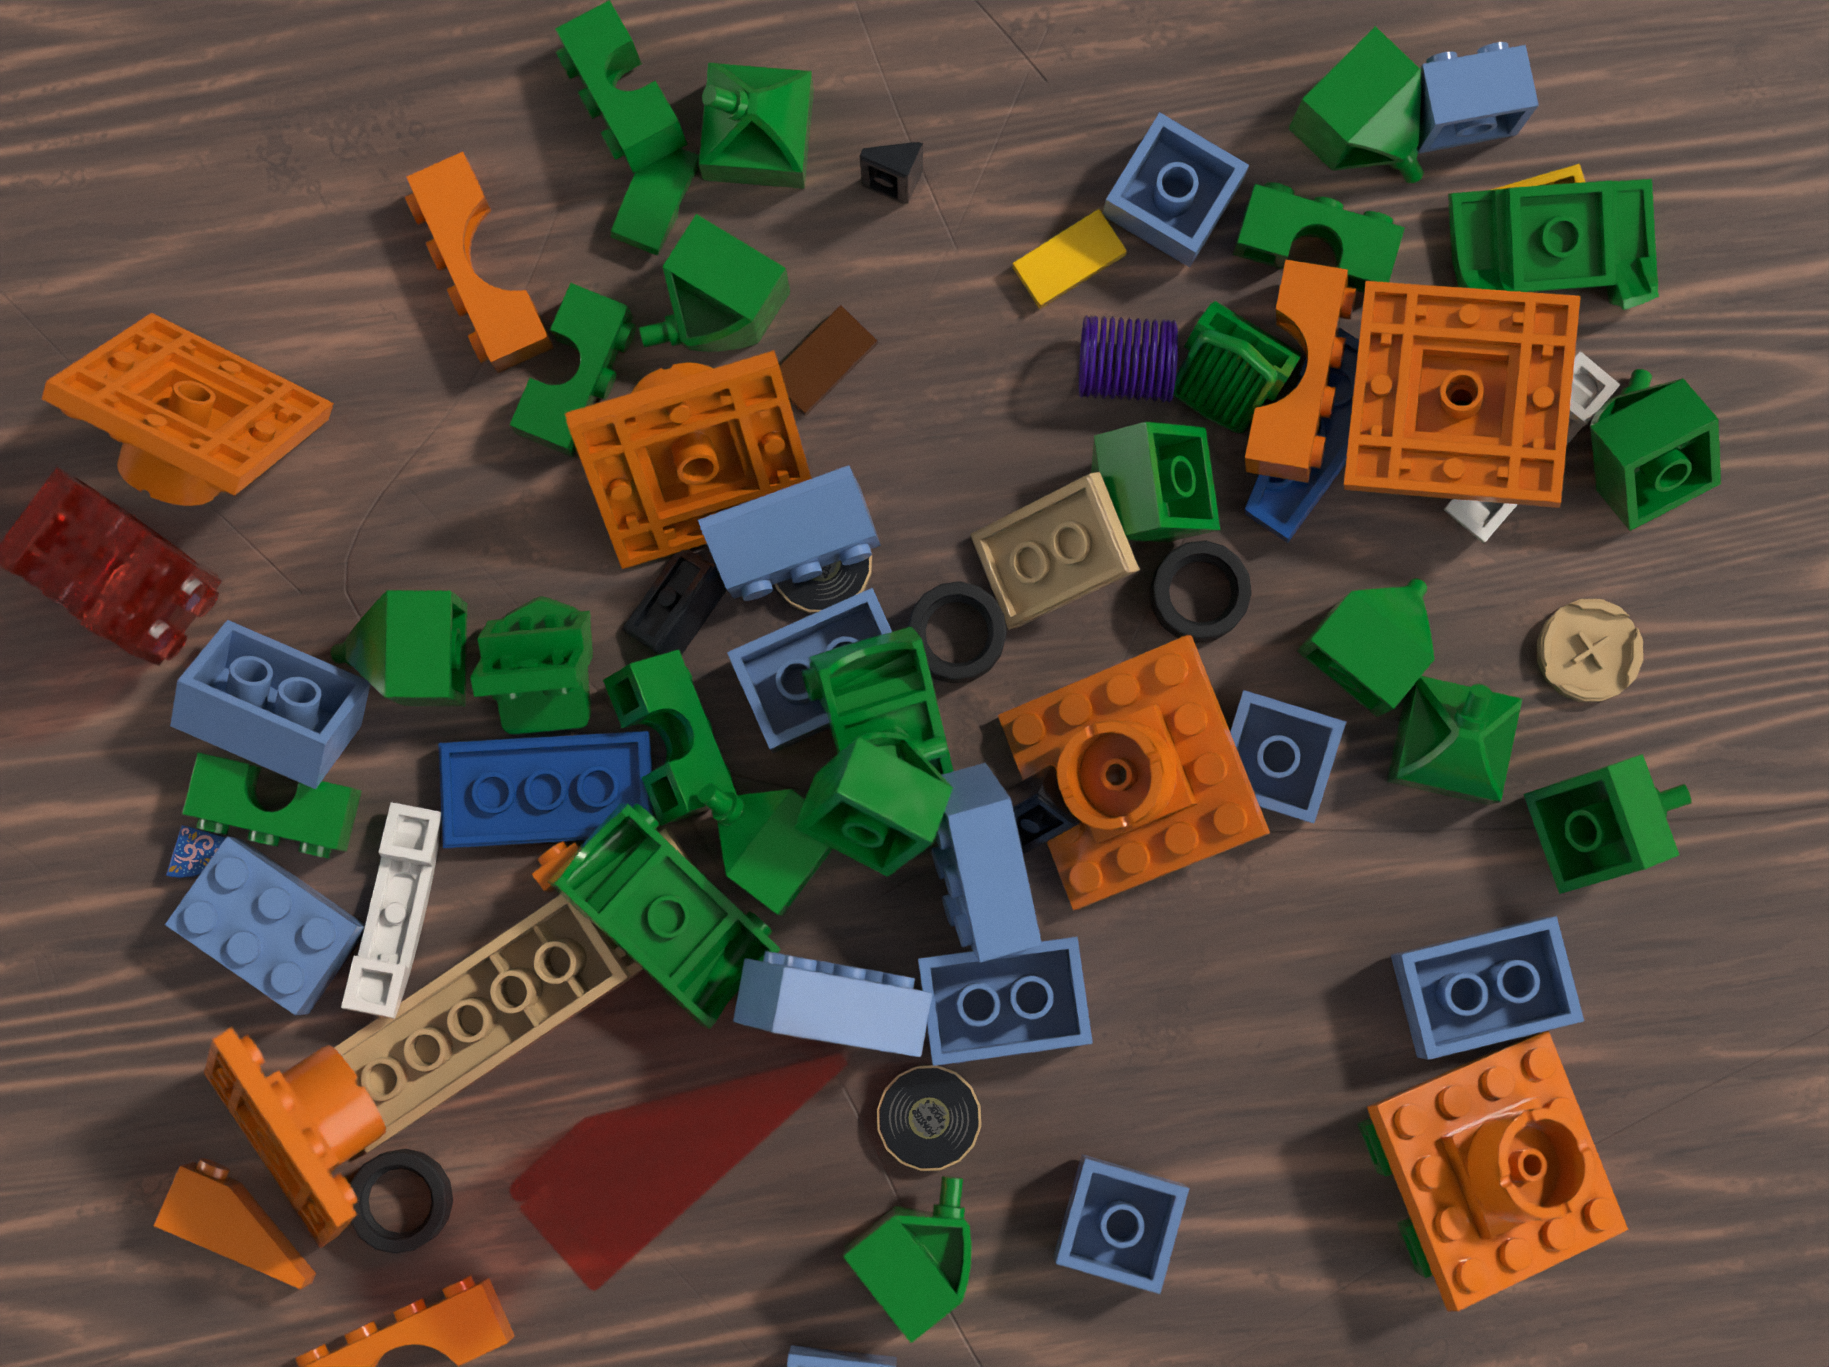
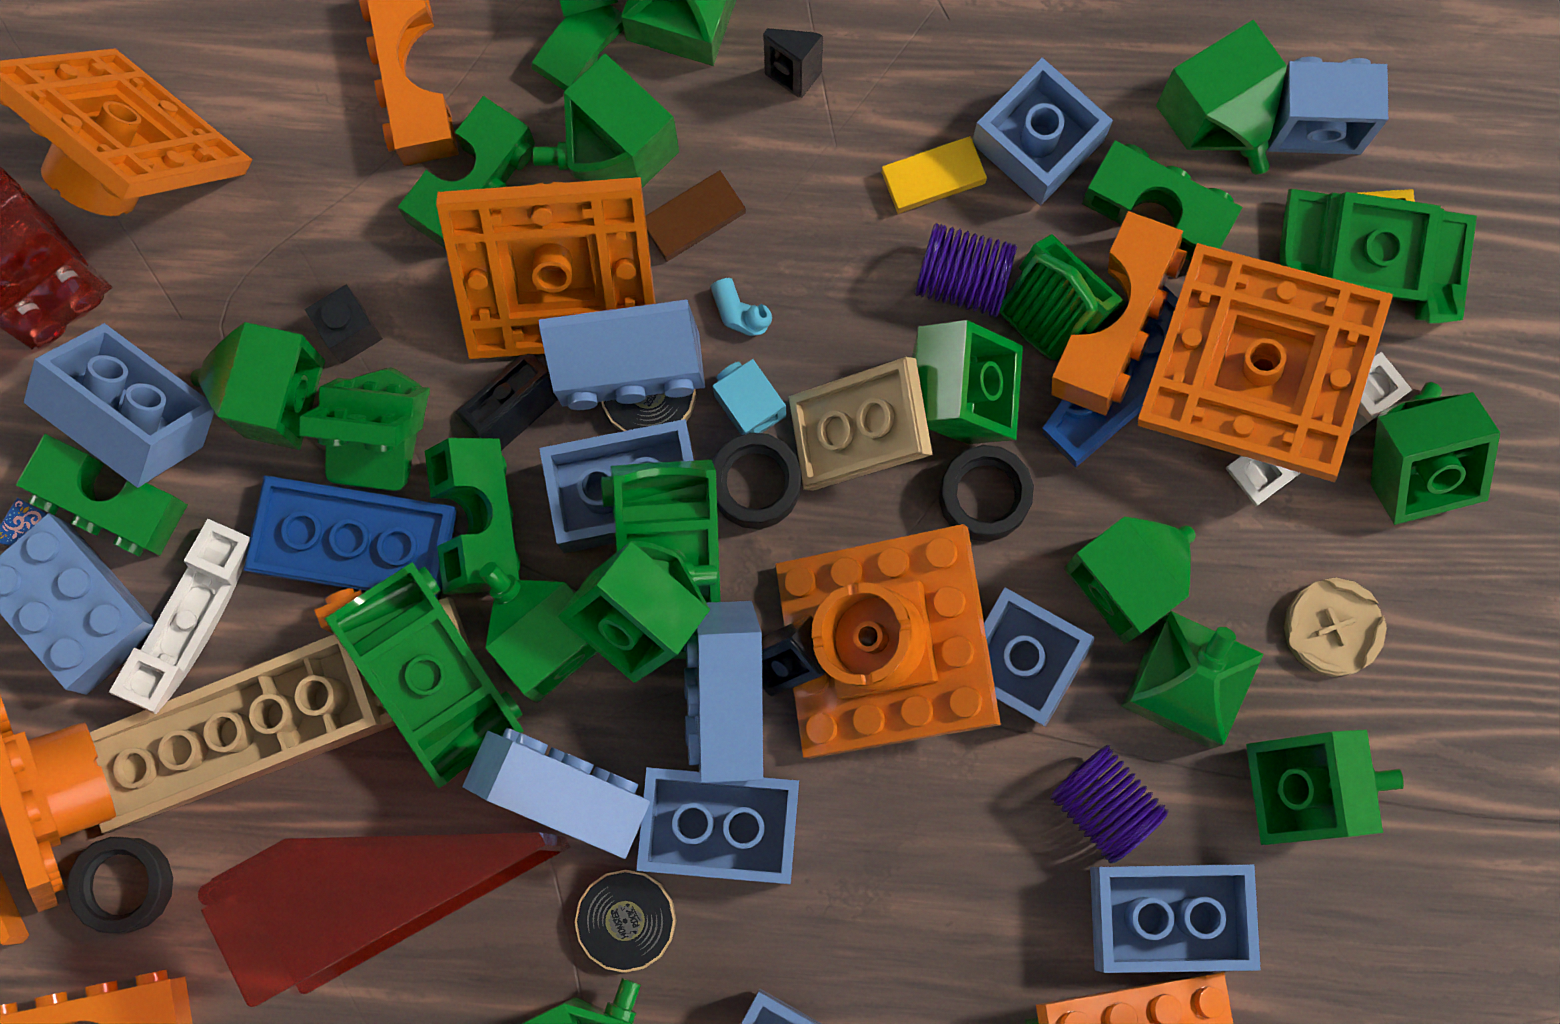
camera: 15 degrees right, 5 degrees down
(481, 563) = (343, 324): none -> black brick
(894, 457) = (738, 315): none -> medium azure arm
(929, 546) = (748, 398): none -> medium azure brick
(1379, 866) = (1138, 826): none -> dark purple piece

